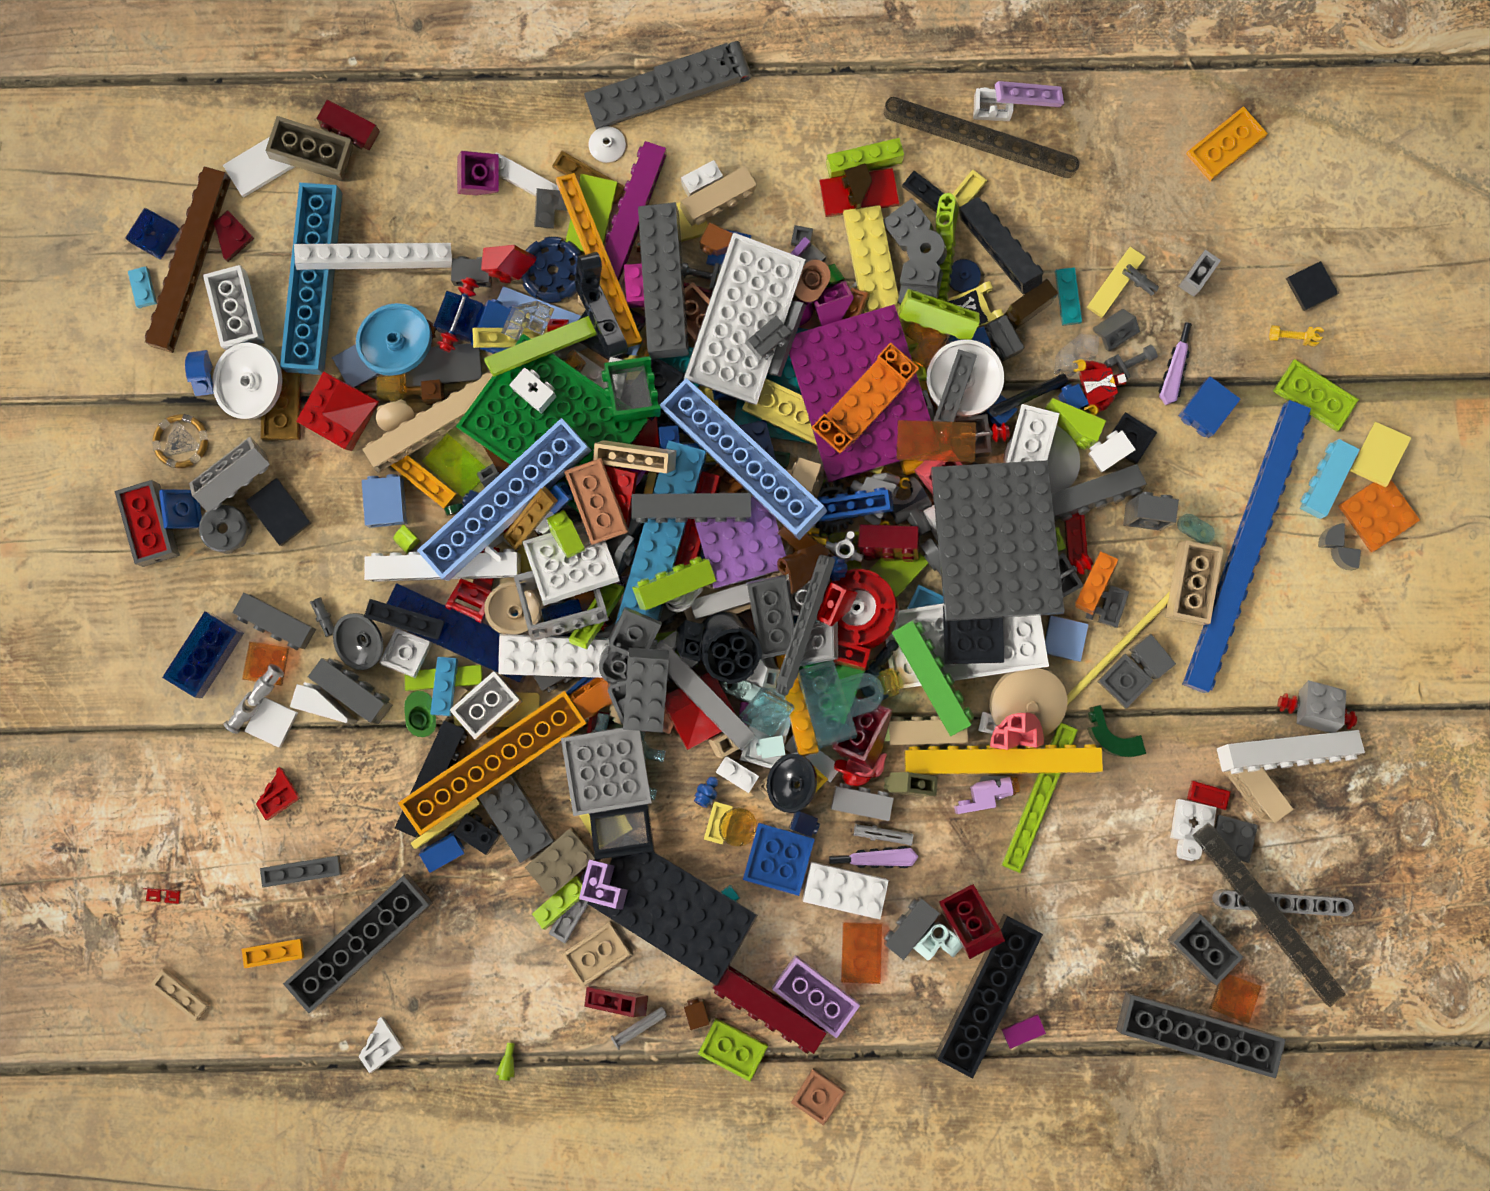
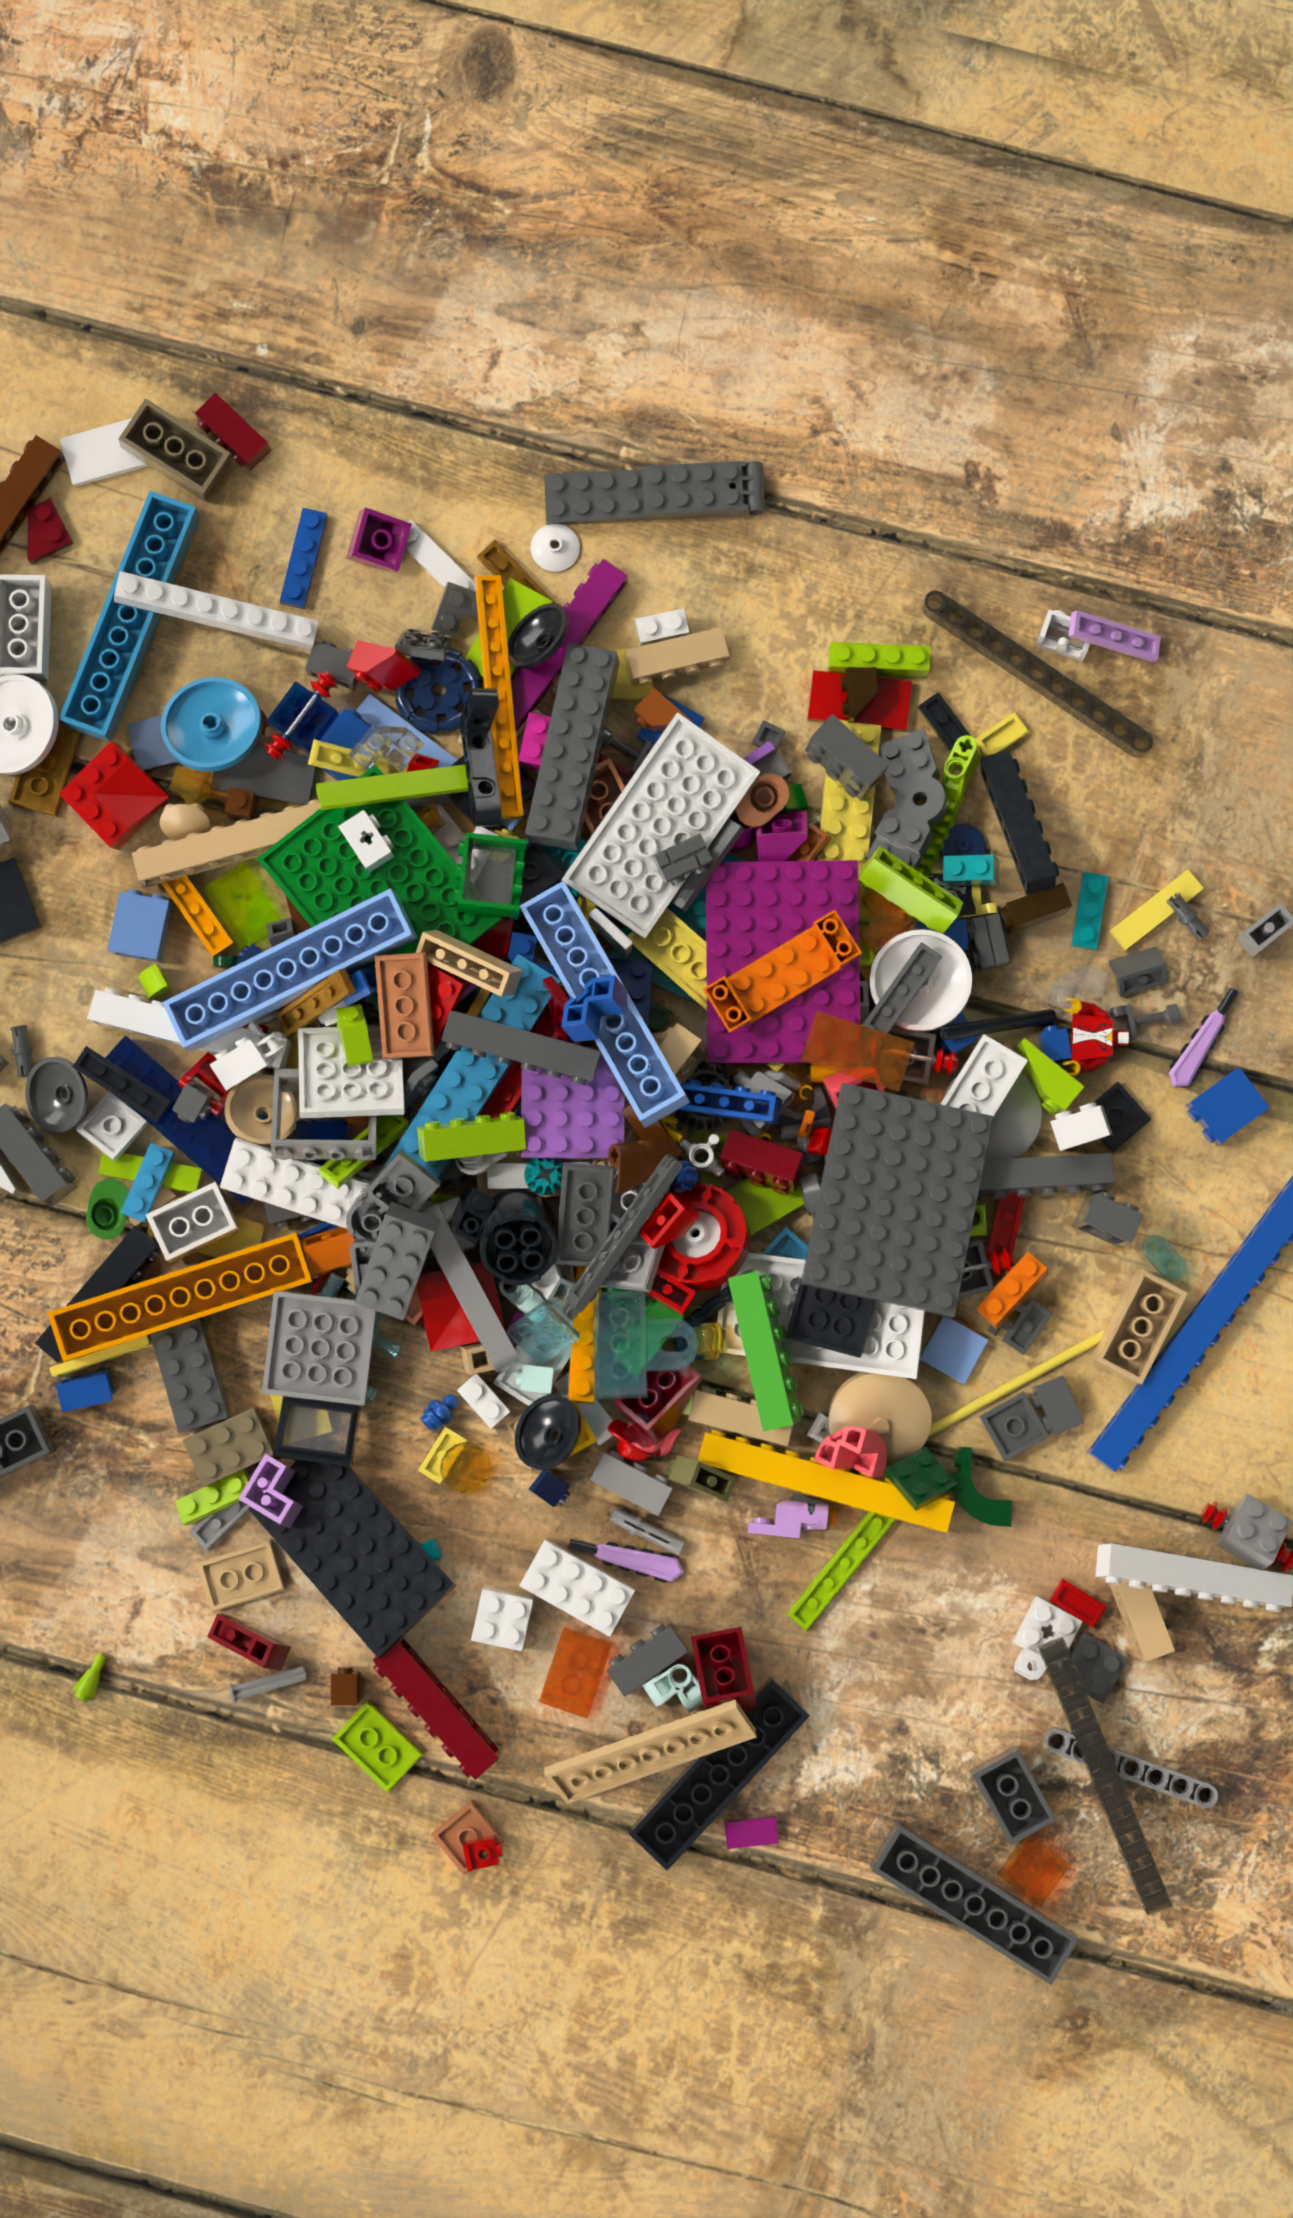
camera: 20 degrees right, 0 degrees up
(426, 202) = (303, 558): none -> blue plate
(461, 617) = (193, 1102): none -> dark grey brick
(477, 833) = (137, 1380): black brick -> none
(490, 575) = (244, 1060): none -> white brick
(526, 240) = (423, 645): none -> dark grey tile
(615, 208) = (538, 636): none -> black dish
(713, 472) = (556, 1006): none -> dark red wing
(731, 407) = (610, 932): none -> white tile
(734, 605) = (542, 1186): none -> teal gear
(739, 454) = (601, 998): none -> blue brick
(778, 859) = (505, 1523): blue plate -> none
(797, 929) = (502, 1619): none -> white brick
(815, 996) = (500, 1709): lavender brick -> none
(826, 1102) = (471, 1852): none -> red brick
(864, 232) = (845, 757): none -> dark grey brick
(912, 502) = (806, 1124): none -> orange tile
(926, 515) = (819, 1141): none -> red tile
(935, 995) = (650, 1752): none -> tan plate
(977, 289) = (971, 870): none -> teal brick
(1071, 738) = (920, 1478): none -> dark green plate

